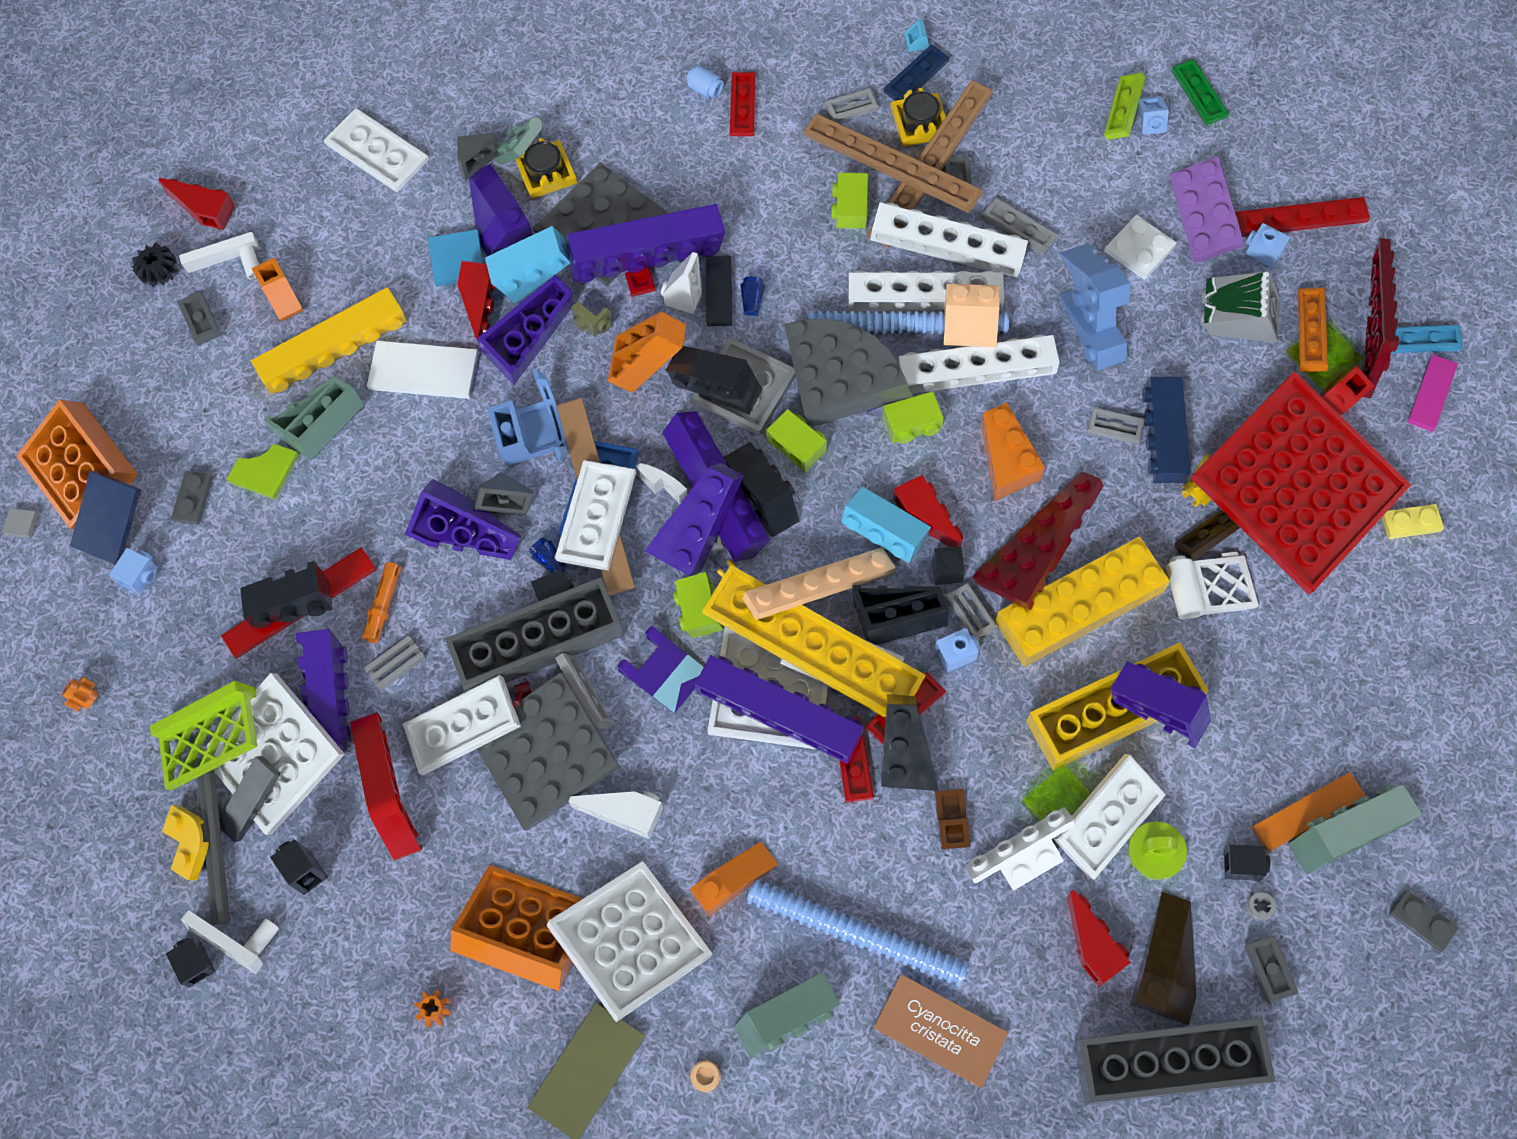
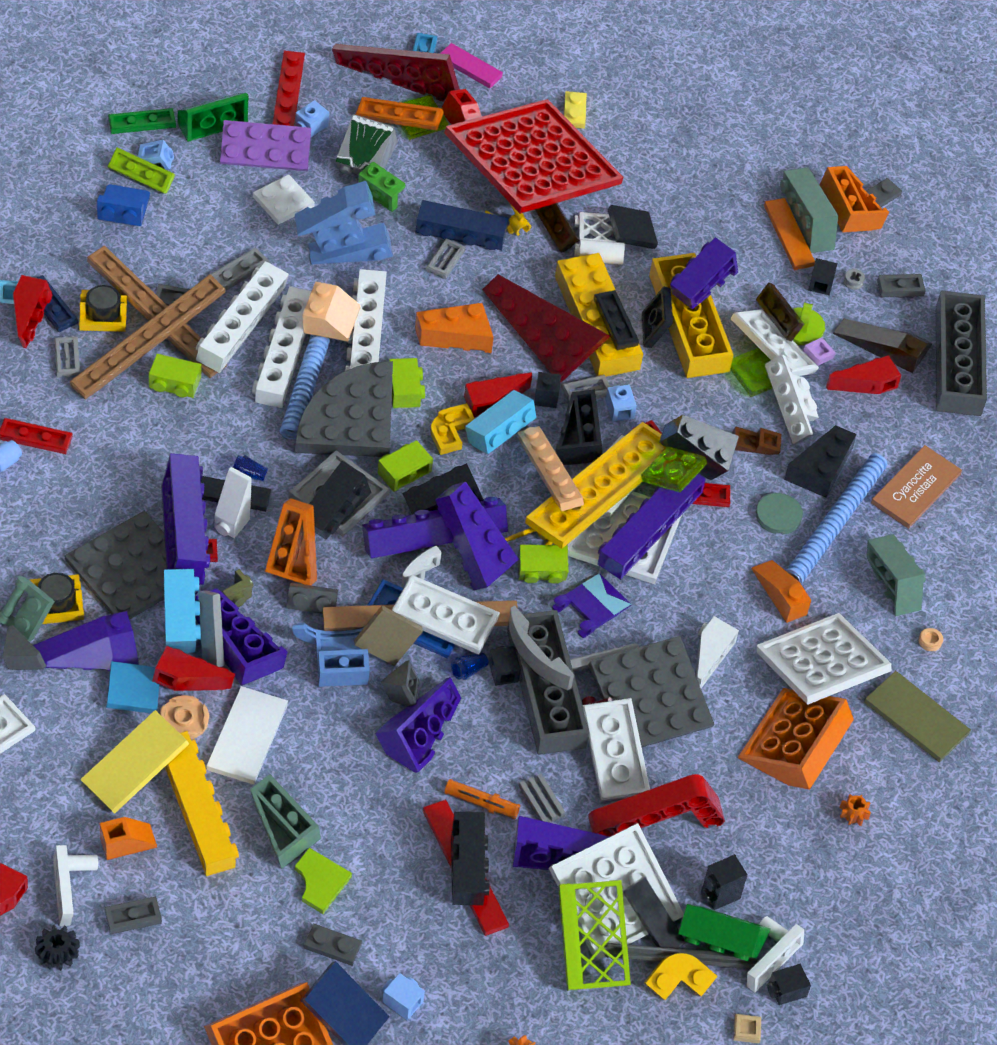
camera: 90 degrees left, 15 degrees down
(139, 925) = (747, 1028): none -> tan tile
(239, 878) = (723, 932): none -> green slope
(360, 275) = (134, 761): none -> light yellow tile
(426, 313) = (194, 723): none -> light nougat tile
(527, 287) = (211, 628): none -> light grey tile
(549, 462) = (388, 635): none -> dark tan tile
(574, 583) = (552, 671): none -> light grey slope
(596, 389) = (311, 598): none -> dark grey plate
(847, 716) = (674, 469): none -> clear neon green plate
(849, 862) = (779, 513): none -> sand green tile
(865, 470) = (446, 425): none -> yellow plate
(894, 52) = (30, 301): none -> red slope
(938, 904) = (822, 461): none -> black wedge
(1062, 614) = (616, 320): none -> black tile
(1070, 101) = (123, 205): none -> blue bracket
(1093, 666) = (657, 317): none -> black tile
(1118, 875) = (819, 351): none -> lavender plate
(1160, 814) = (780, 311): none -> dark brown tile
(1191, 331) = (382, 185): none -> bright green bracket
(1237, 157) = (209, 116): none -> green slope
(1239, 617) = (632, 226): none -> black tile
(1387, 881) = (852, 203): none -> orange wedge

